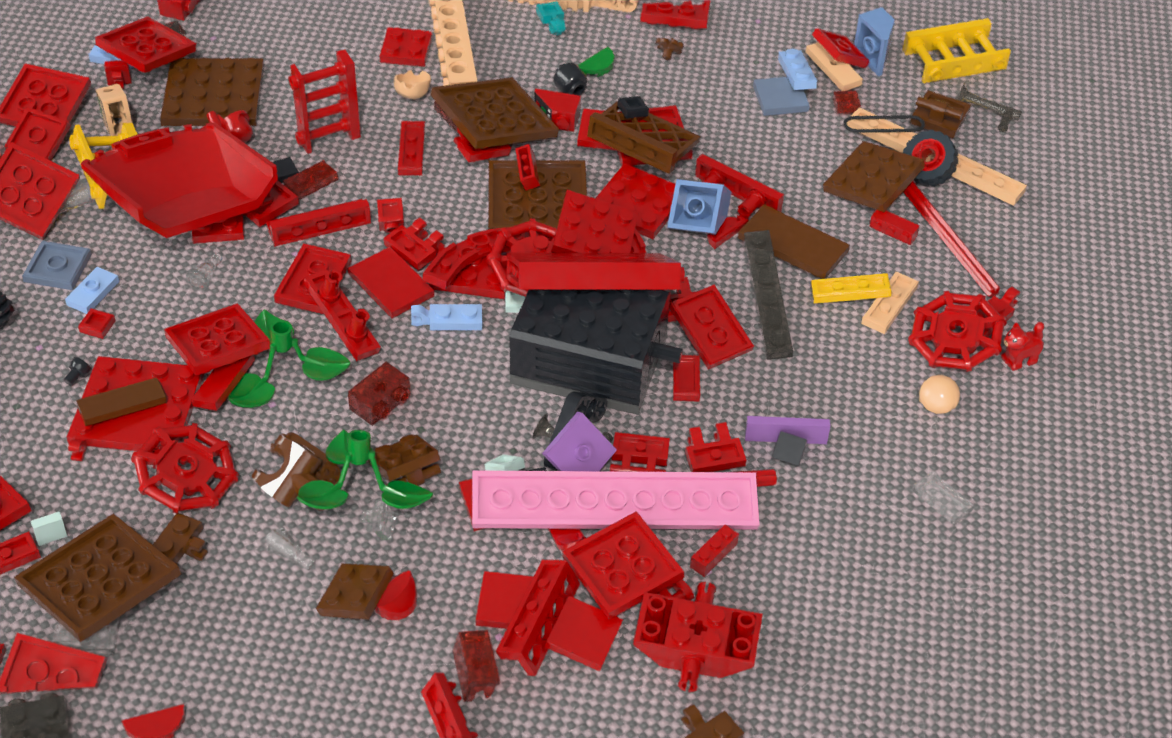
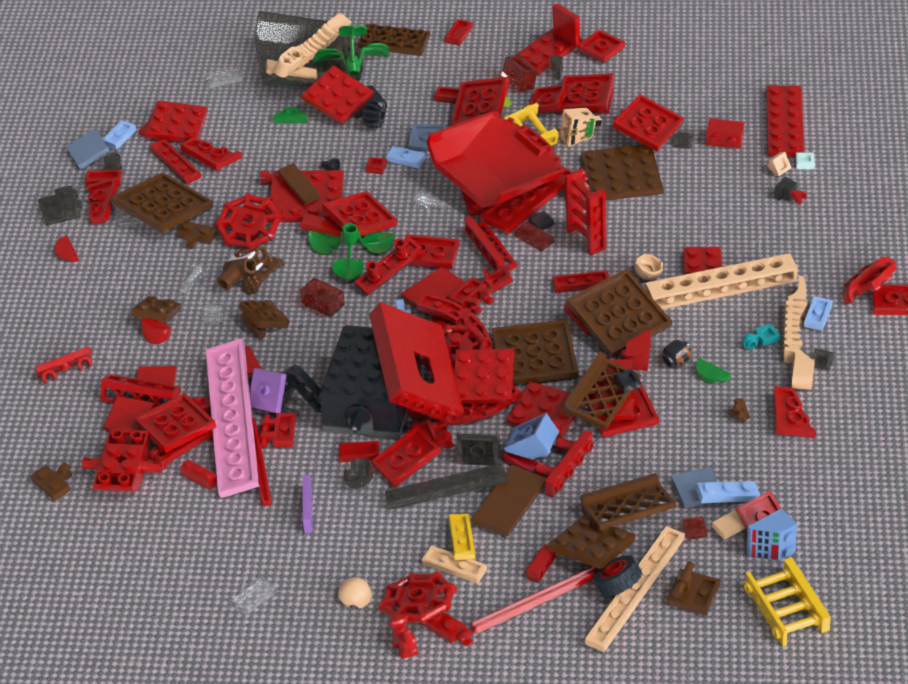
camera: 90 degrees right, 5 degrees down
(49, 528) = (200, 178): light aqua tile -> none
(356, 449) = (216, 273): green plant -> none
(475, 664) = (101, 365): clear red hinge -> none
(505, 463) = (262, 362): light aqua tile -> none
(527, 167) = (554, 335): red piece -> none
(706, 253) = (478, 449): none -> clear smoke slope
(717, 455) = (281, 469): red plate -> none
(740, 372) = (359, 474): none -> clear smoke hair
(790, 448) = (290, 507): black tile -> none
(808, 162) = (632, 493): none -> reddish brown fence
(884, 117) = (655, 551): black piece -> none
(1007, 112) = (721, 604): clear smoke piece -> none

